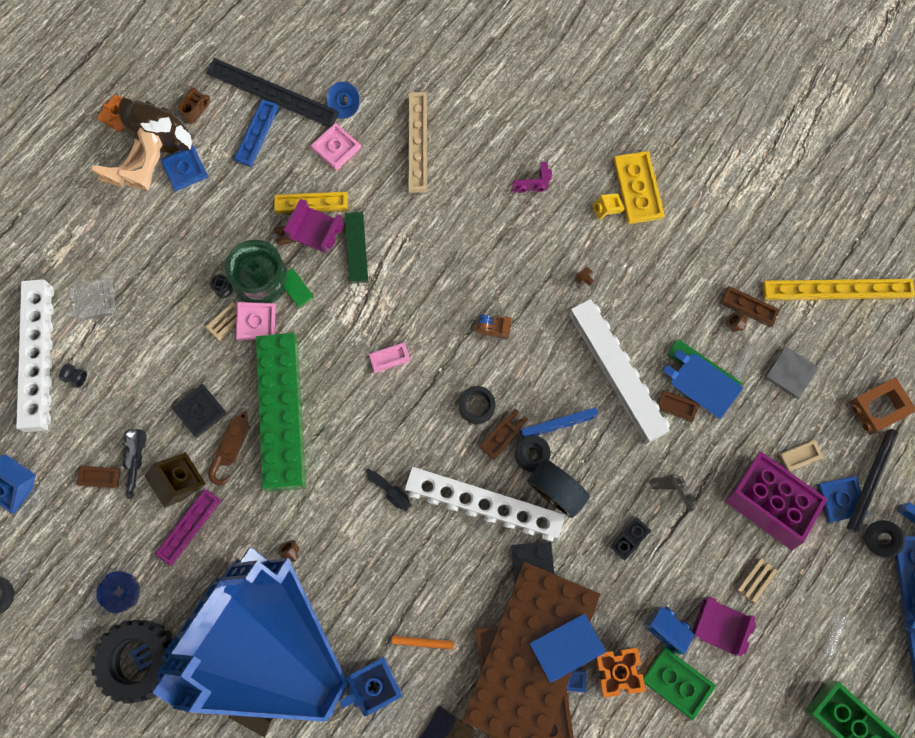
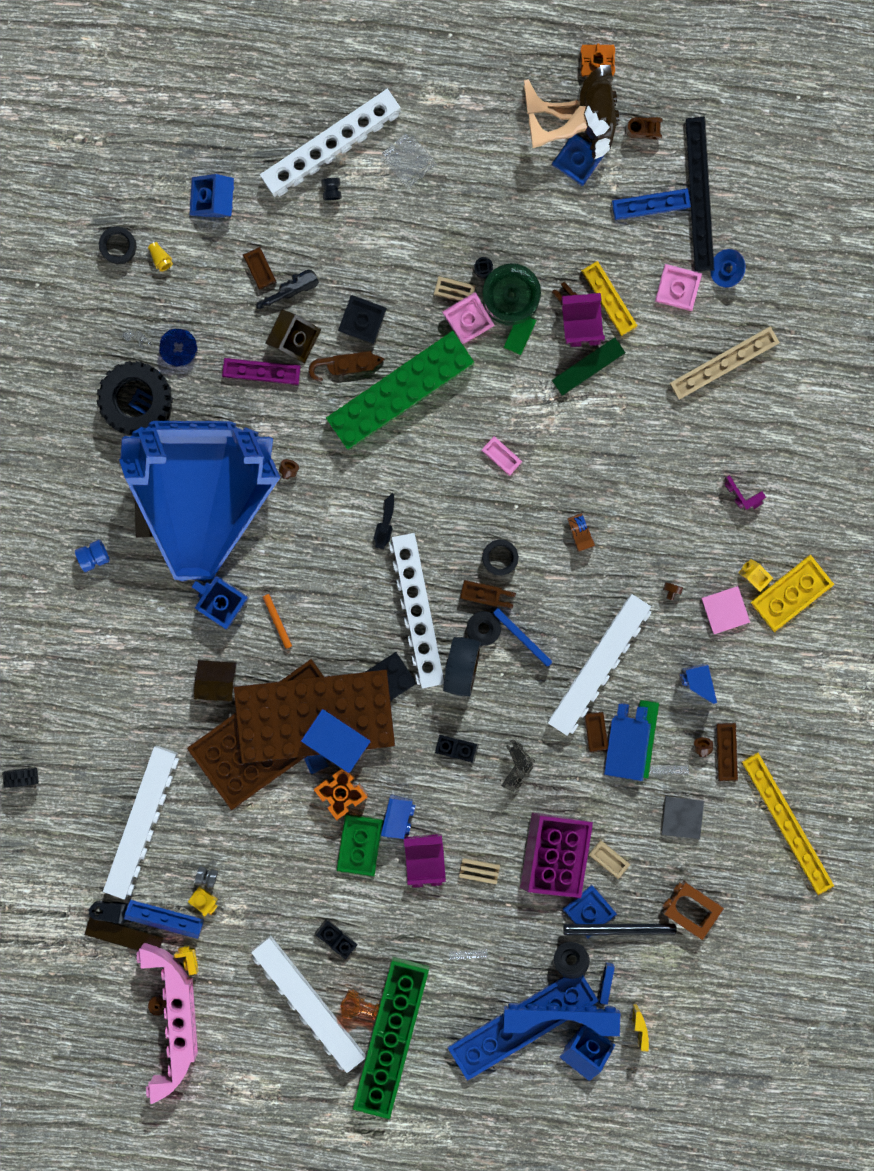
camera: 60 degrees right, 15 degrees up
(30, 562) = (160, 258): none -> yellow cone
(625, 245) = (725, 610): none -> bright pink tile
(679, 292) = (699, 681): none -> blue slope

